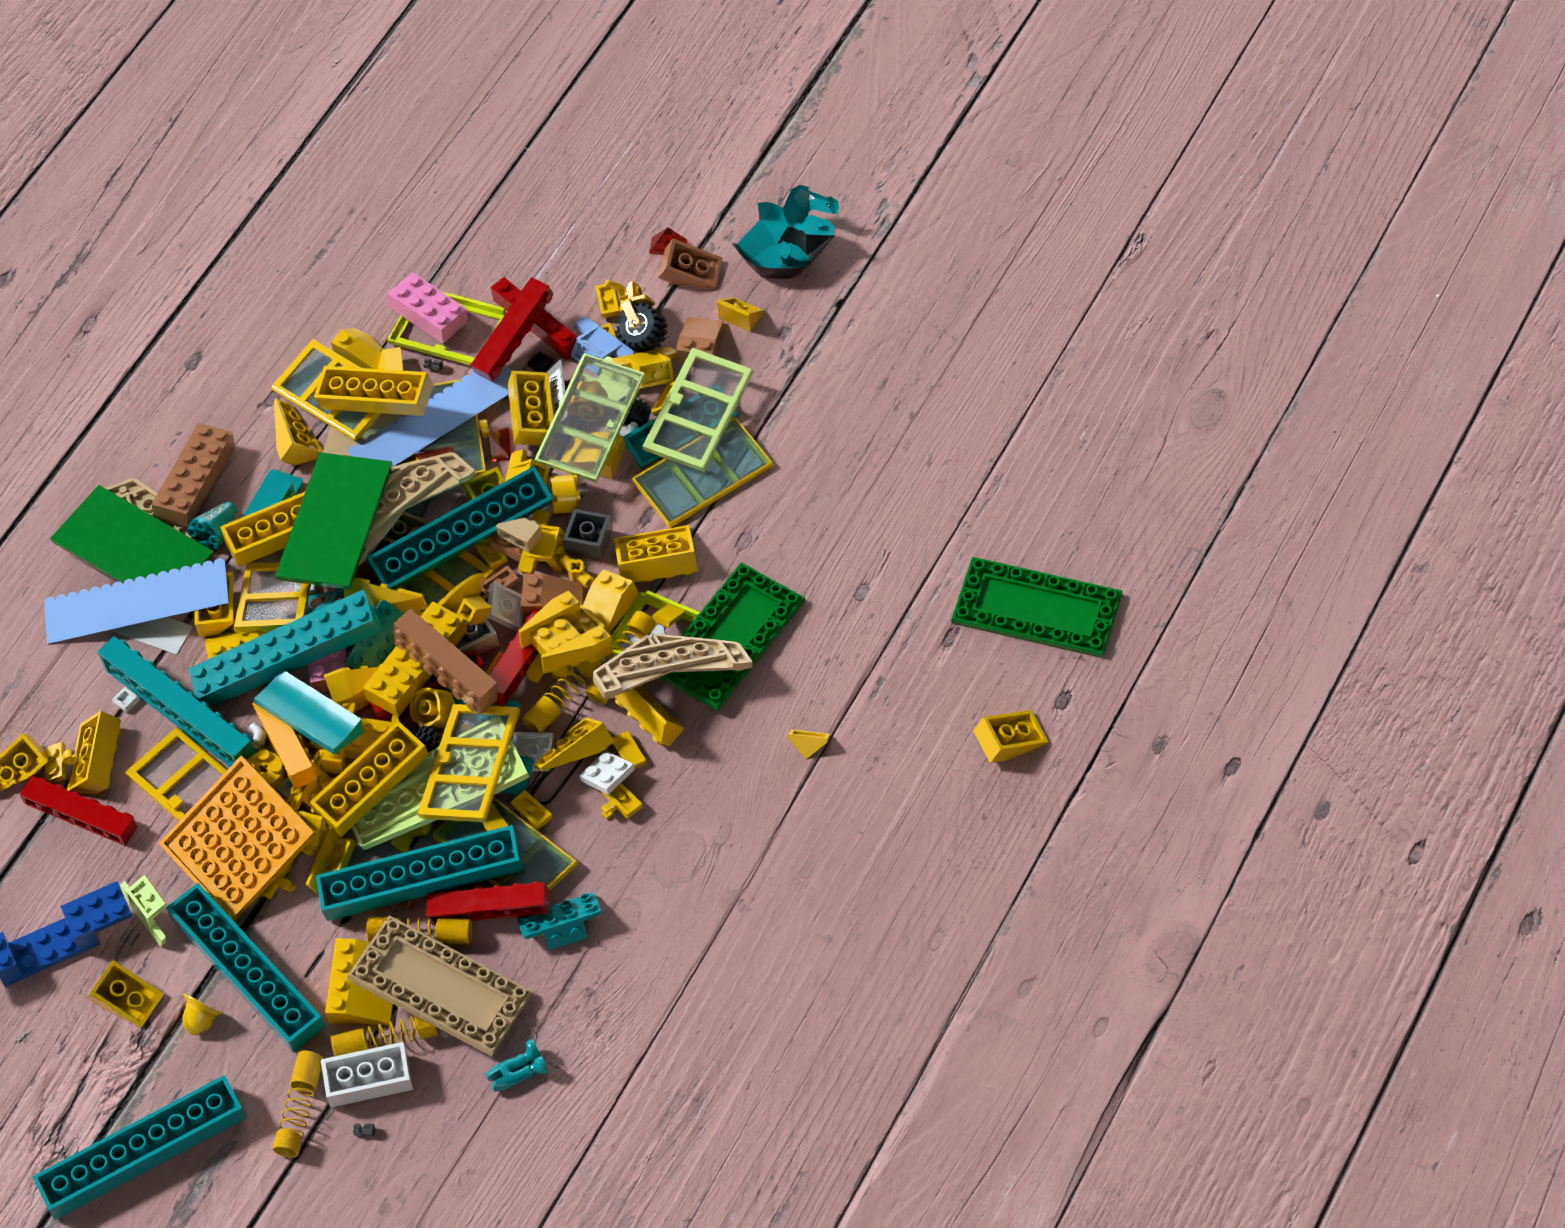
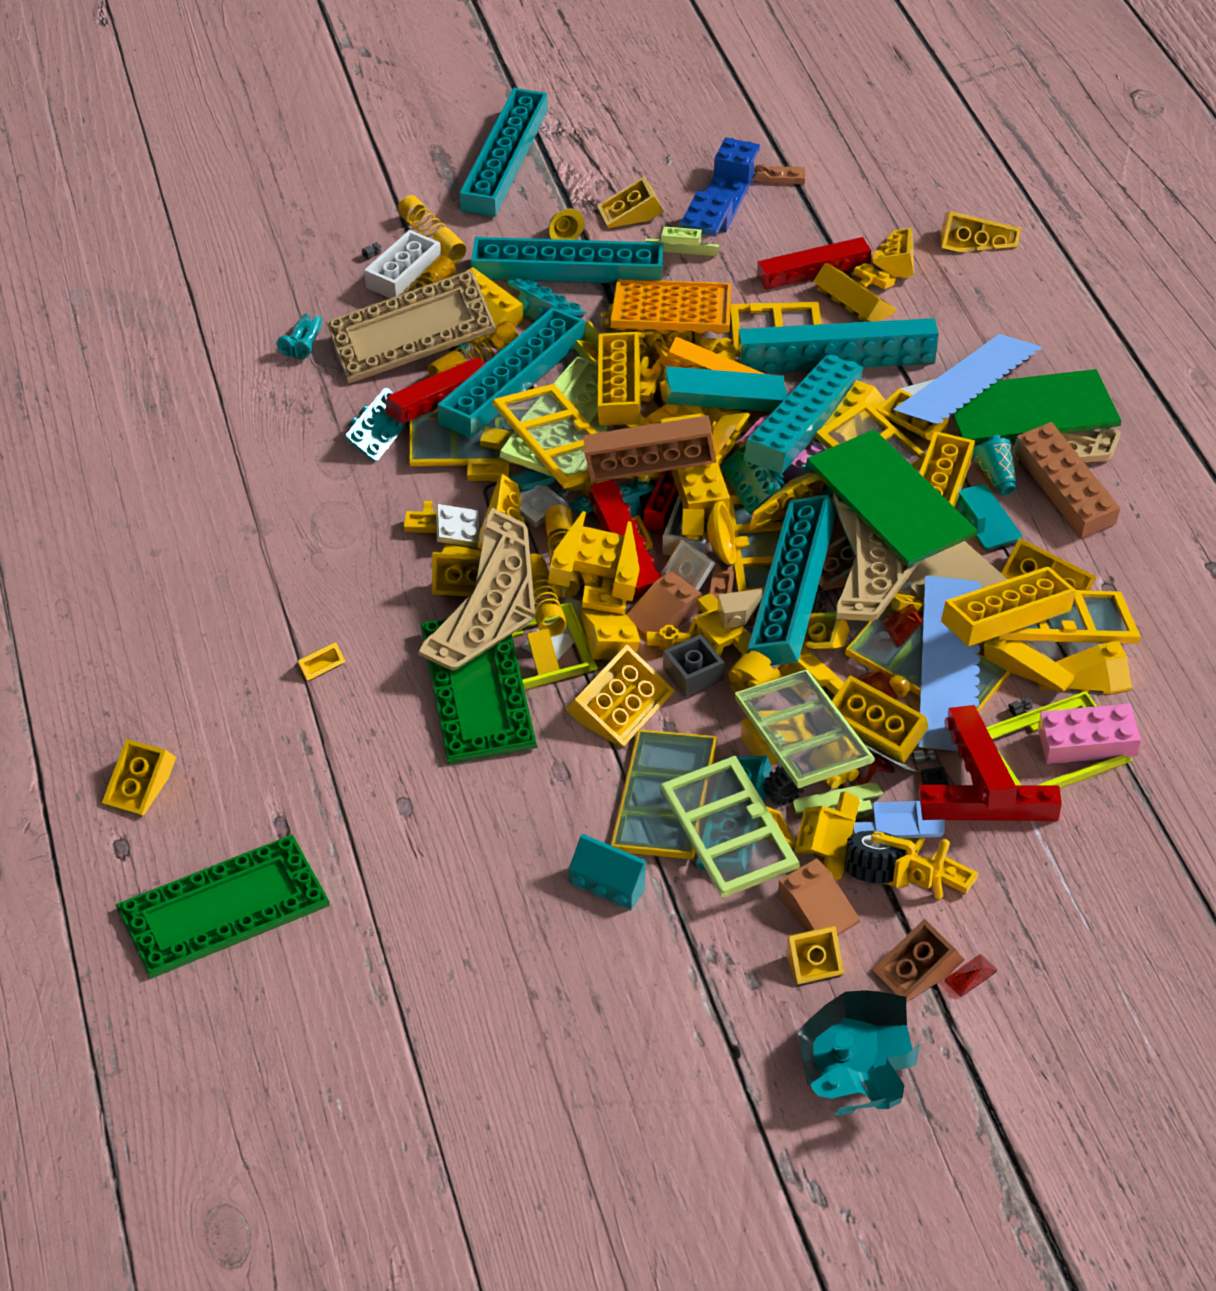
camera: 130 degrees right, 10 degrees down
(308, 944) = (539, 300): none -> teal bracket
(799, 439) = (607, 872): none -> teal slope

